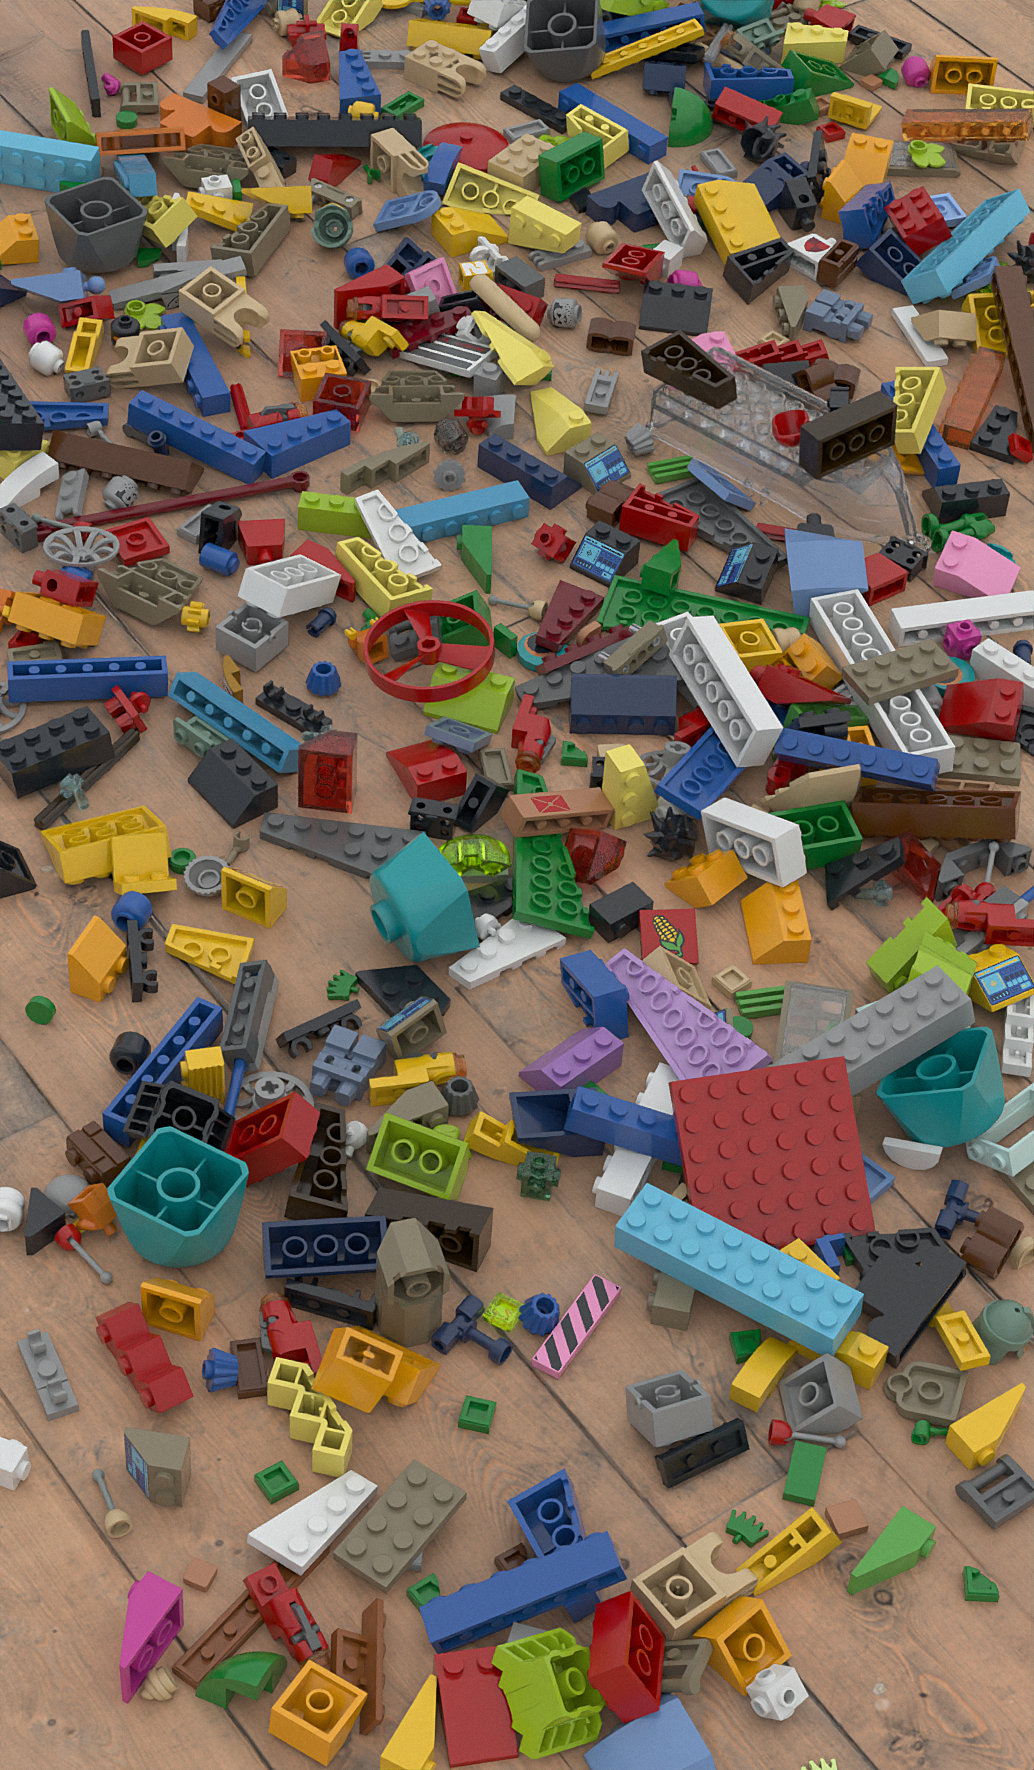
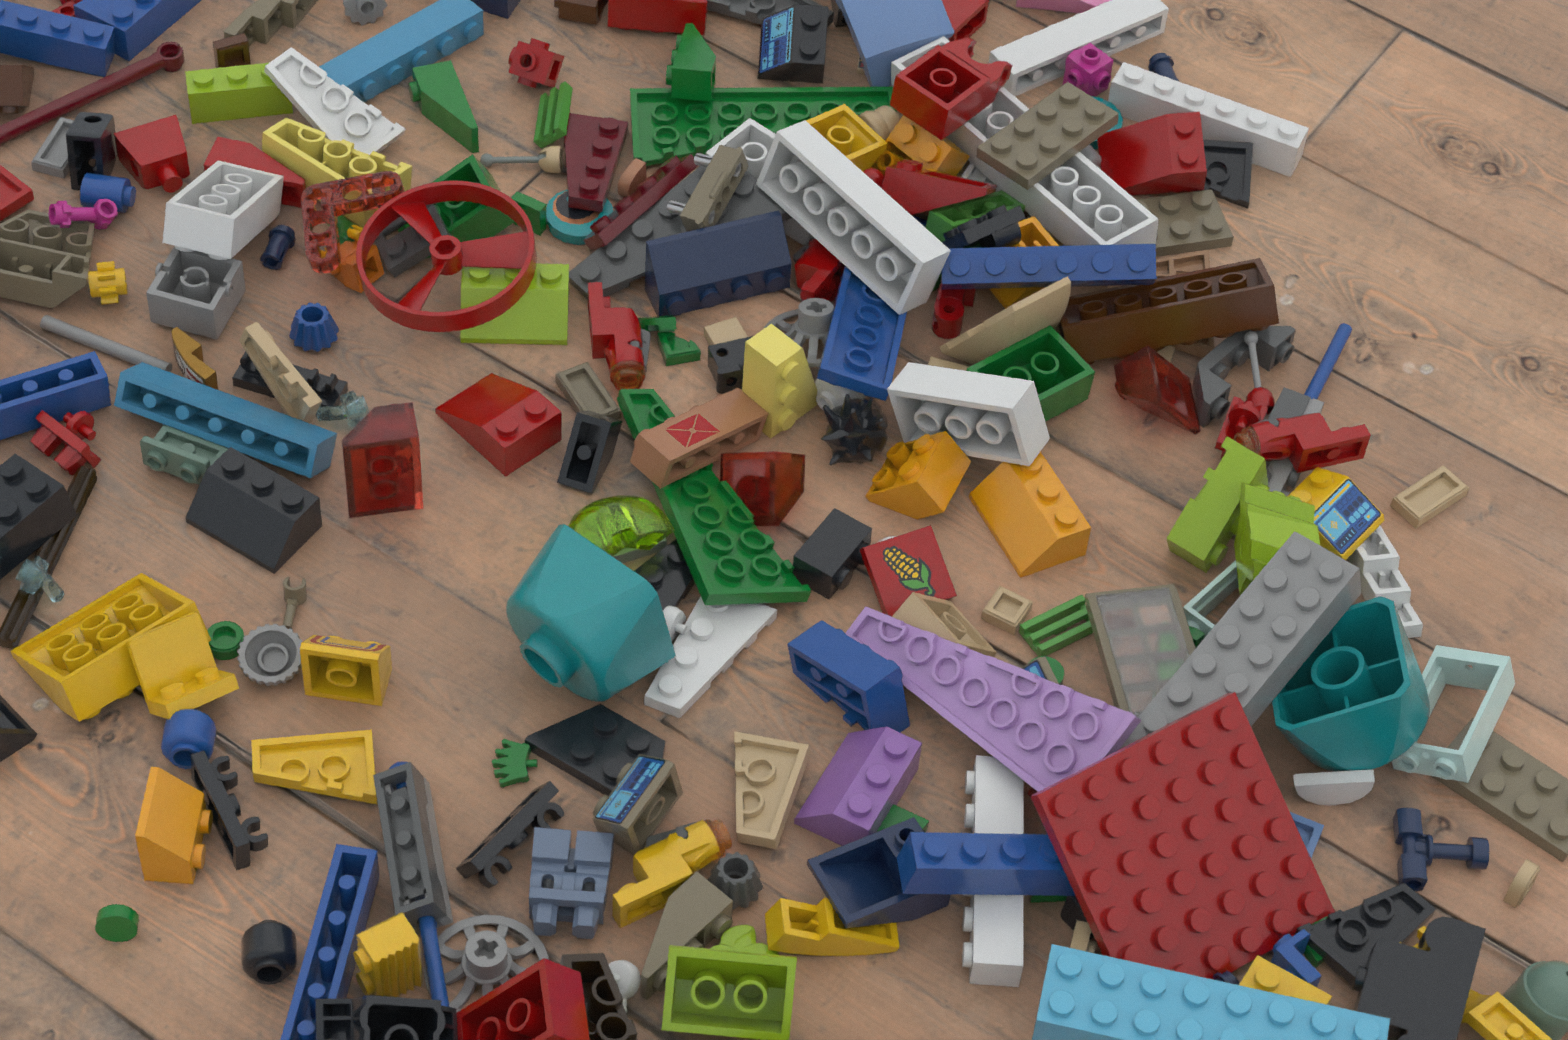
camera: 20 degrees left, 5 degrees up
(176, 655) = (101, 343): none -> light grey bar
(209, 573) = (101, 214): none -> dark pink bar
(283, 699) = (280, 375): none -> tan wing
(342, 486) = (232, 51): none -> reddish brown tile
(343, 844) = (443, 556): dark grey wing -> none
(366, 599) = (334, 205): none -> clear red beam
(434, 817) = (540, 487): black piece -> none
(461, 735) = (523, 360): sand blue plate -> none
(507, 1046) = (766, 786): none -> tan wing
(538, 1176) = (887, 965): clear green brick -> none
(552, 580) = (553, 115): none -> bright green tile
(566, 735) = (658, 323): none -> green tile
(605, 554) = (607, 63): slope -> none
(839, 621) = (947, 87): none -> red brick
(854, 871) = (1100, 415): black wing -> none
(881, 893) = (1138, 438): clear light blue plate -> none
(992, 1241) = (1483, 882): reddish brown brick -> none

